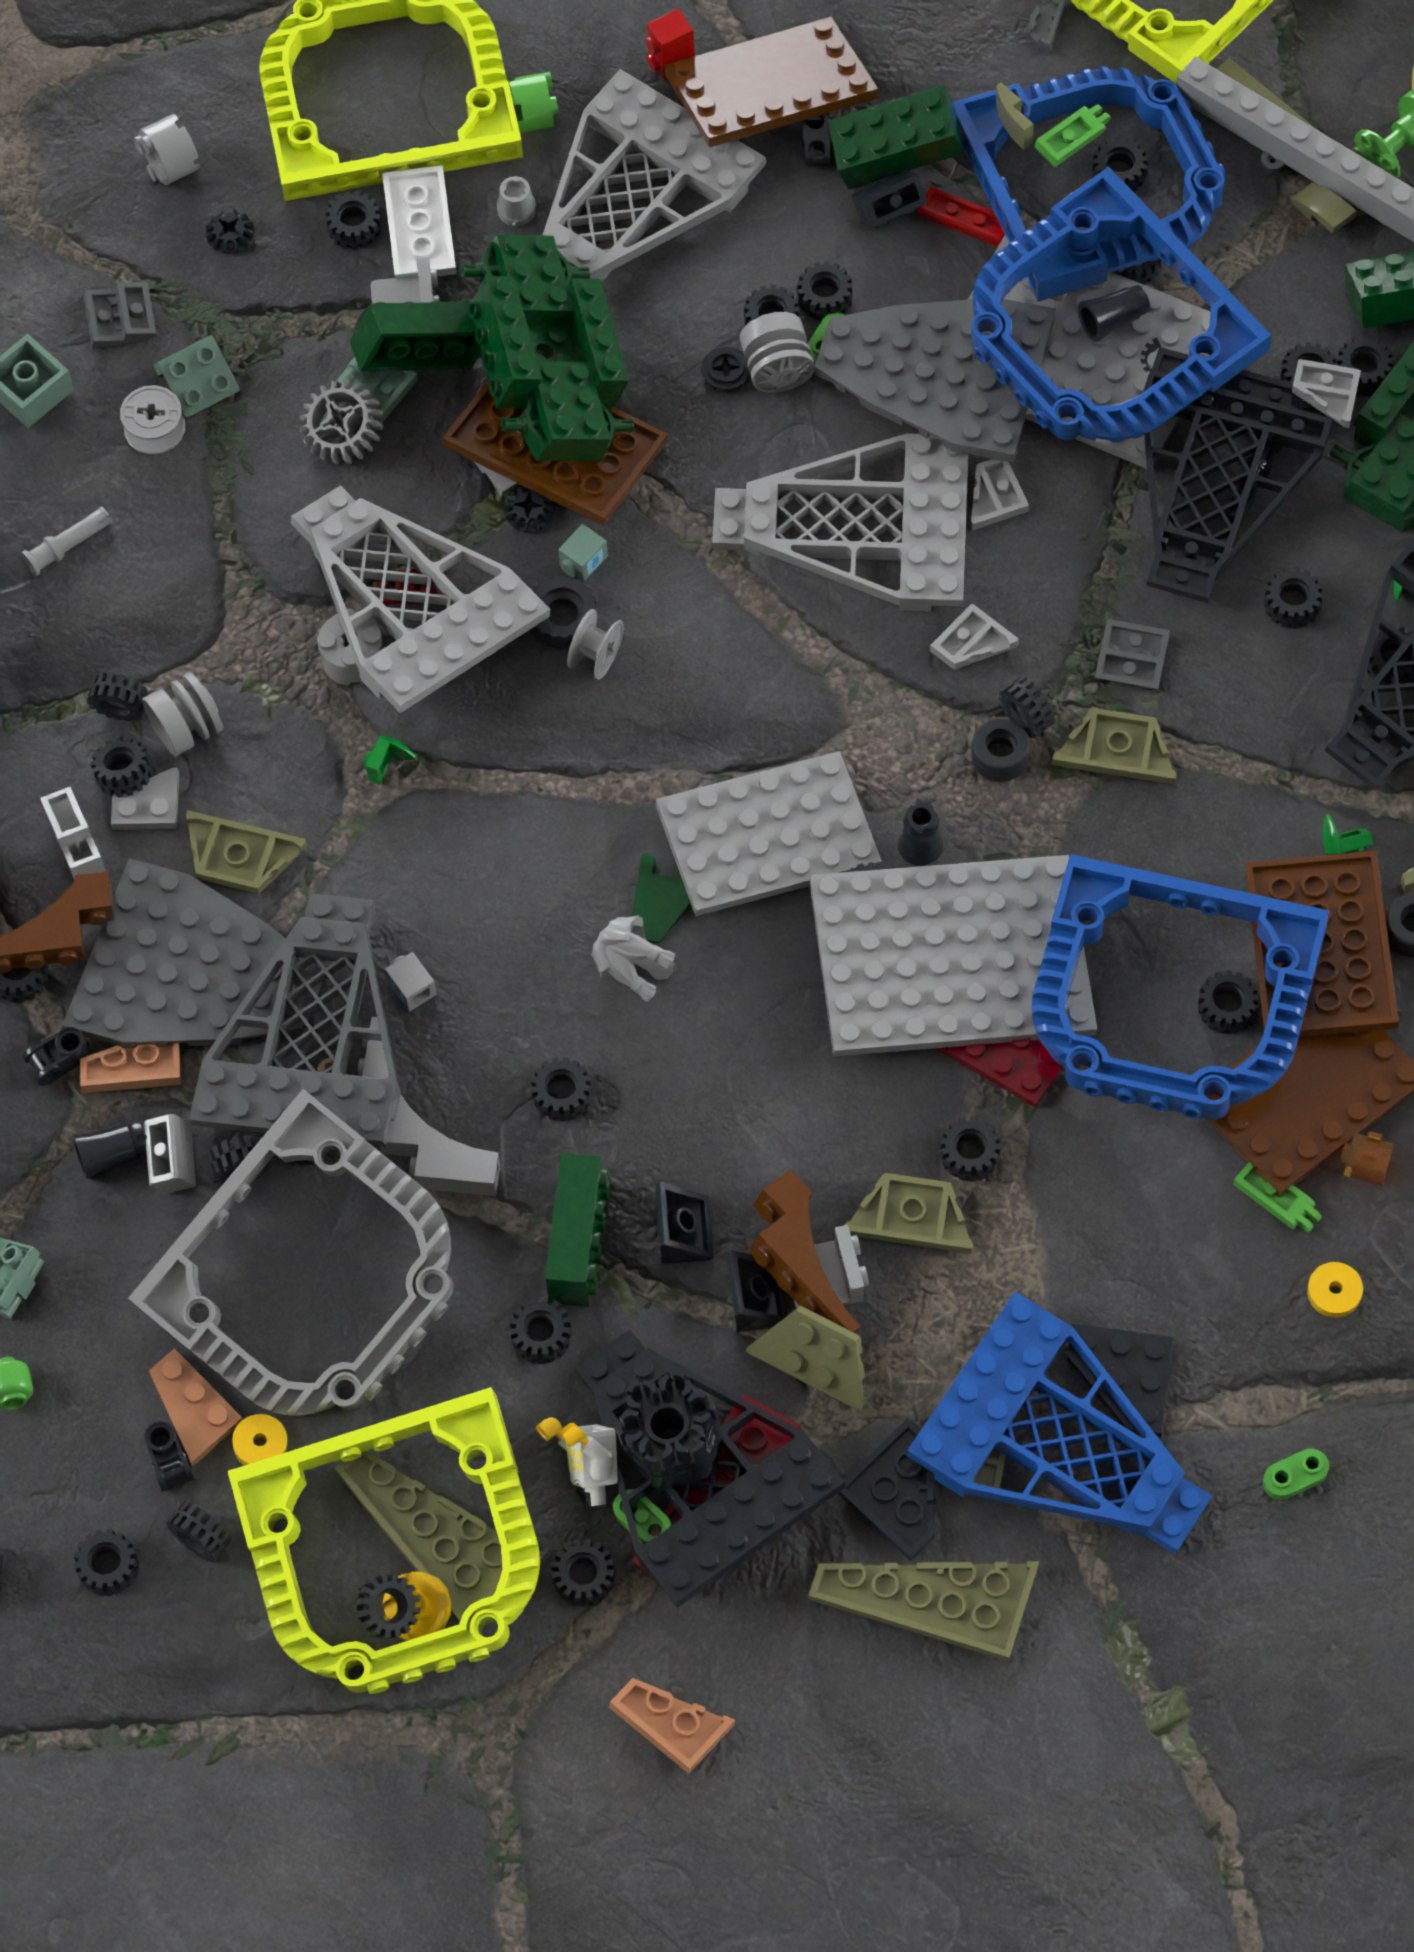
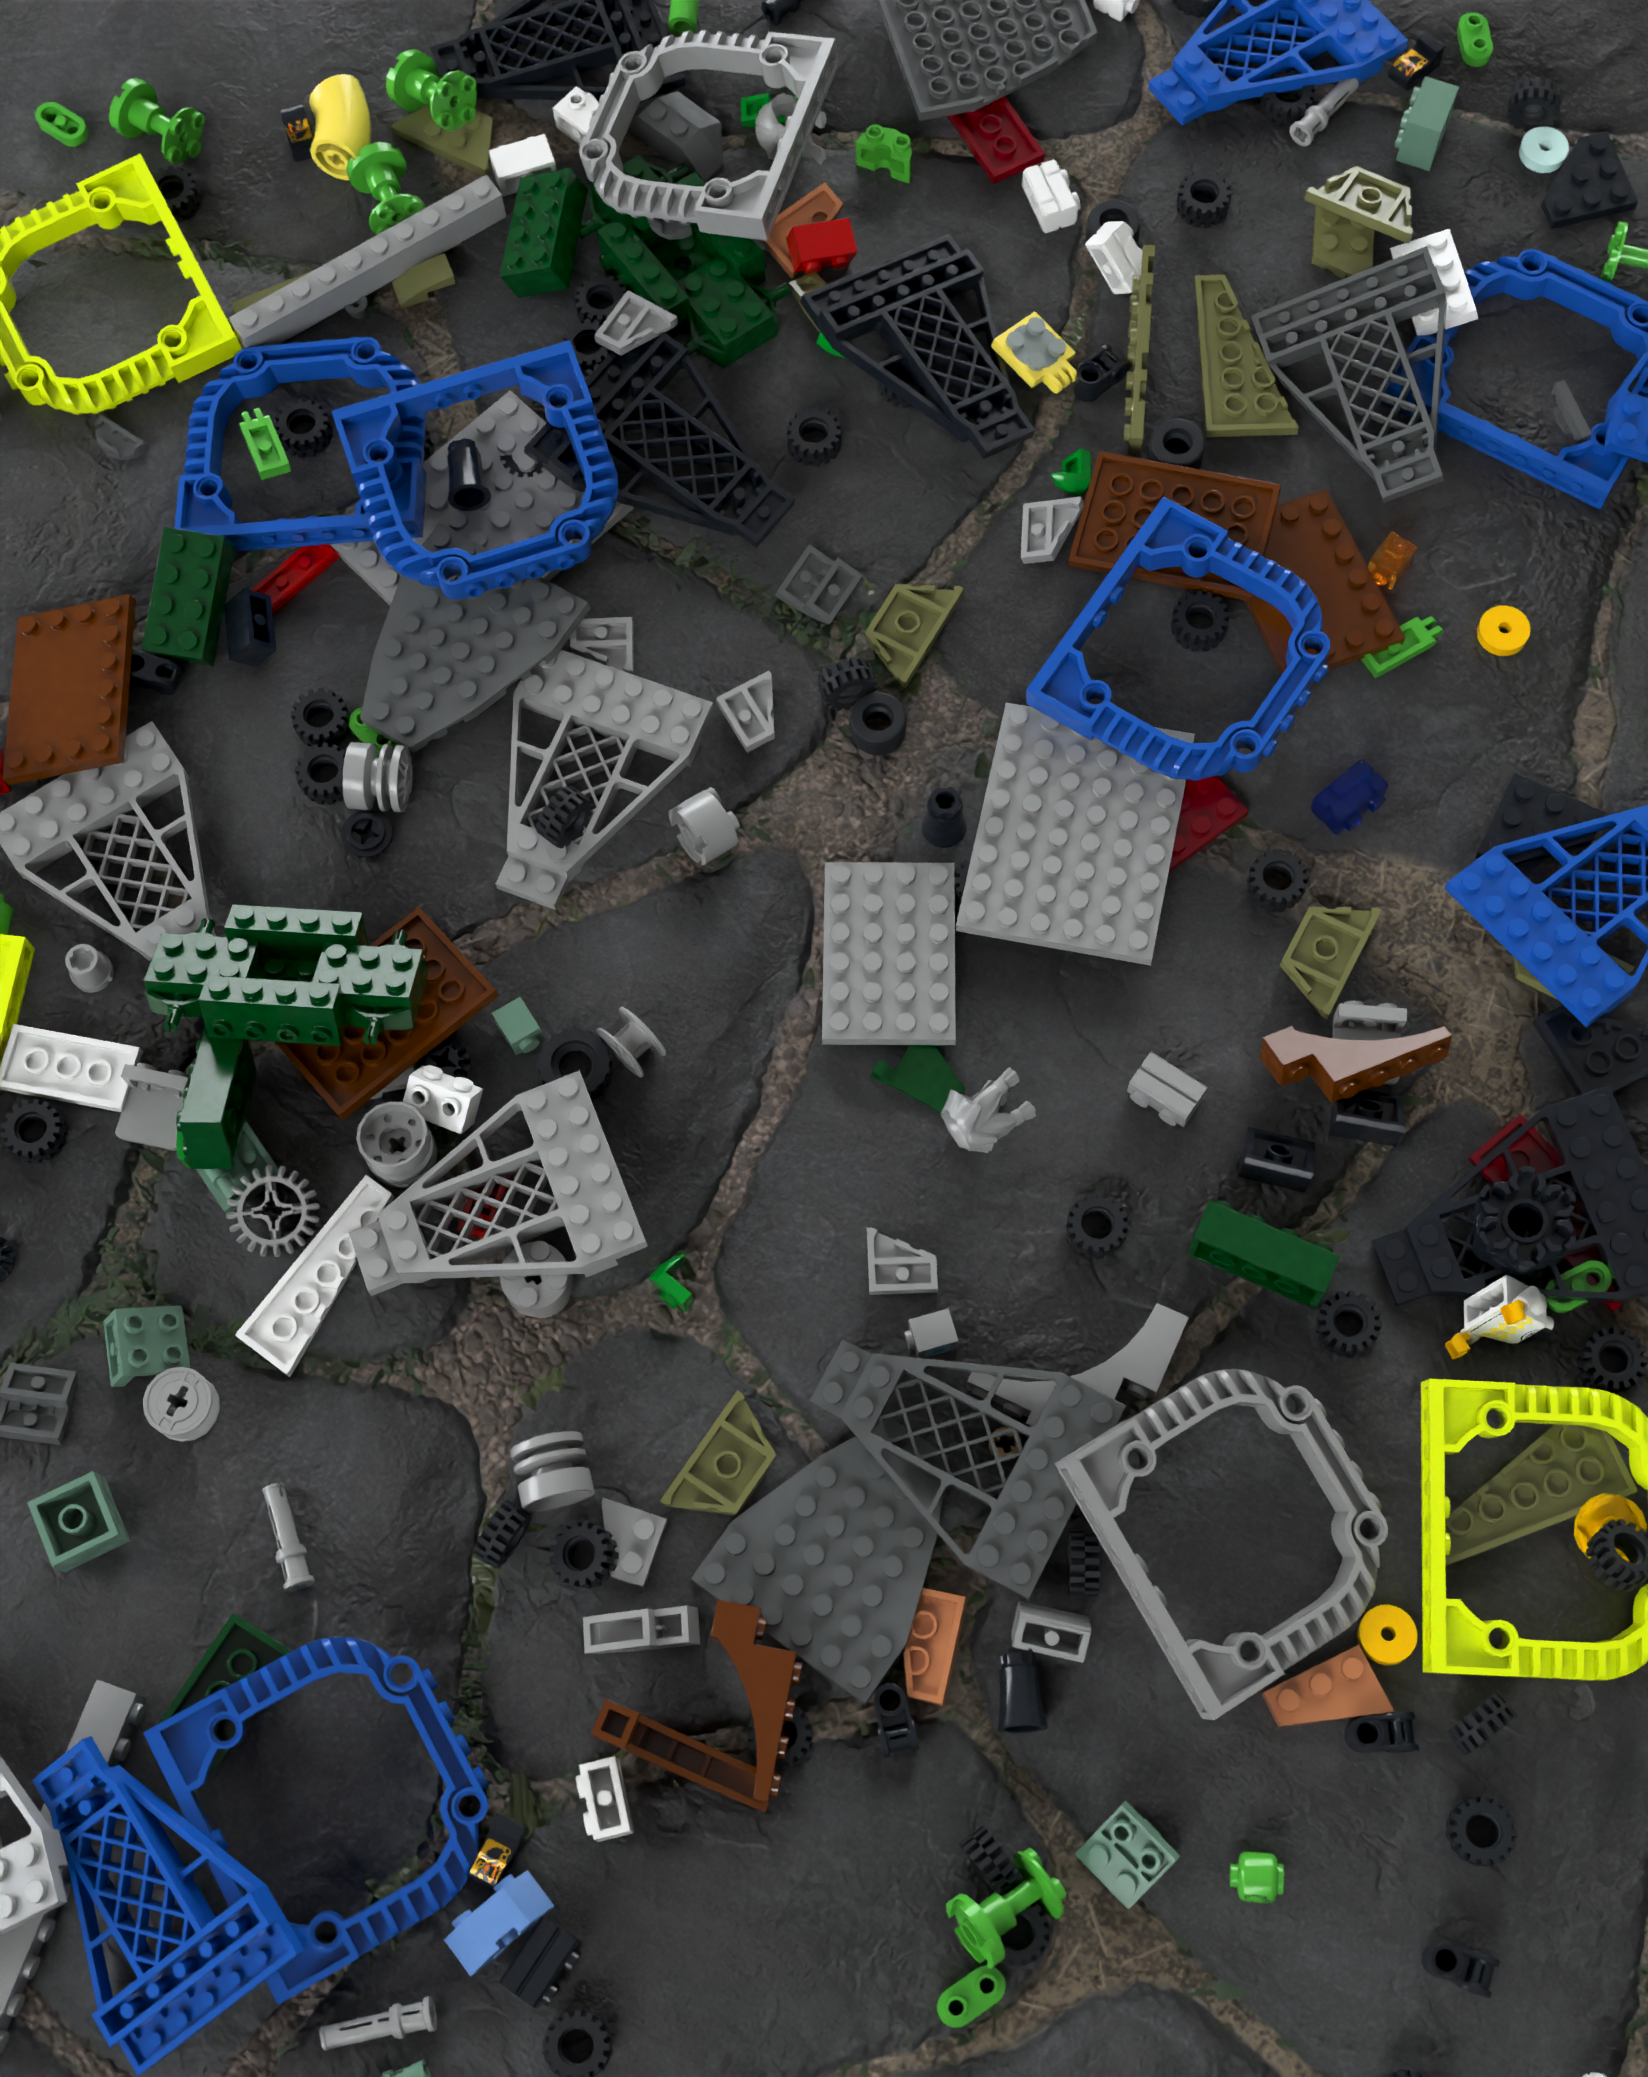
camera: 70 degrees left, 5 degrees up
(283, 477) = (303, 1296): none -> white wing
(433, 492) = (393, 1128): none -> light grey wheel
(465, 934) = (898, 1267): none -> light grey wing
(489, 515) = (443, 1098): none -> white brick
(715, 1109) = (1166, 1090): none -> light grey brick
(787, 510) = (564, 816): none -> black tyre
(816, 1354) = (1451, 1079): olive wing -> none
(830, 633) = (704, 826): none -> light grey brick
(1010, 115) = (212, 489): olive slope -> none
(1083, 1190) = (1350, 797): none -> clear blue brick
(1273, 832) = (1047, 527): none -> light grey wing

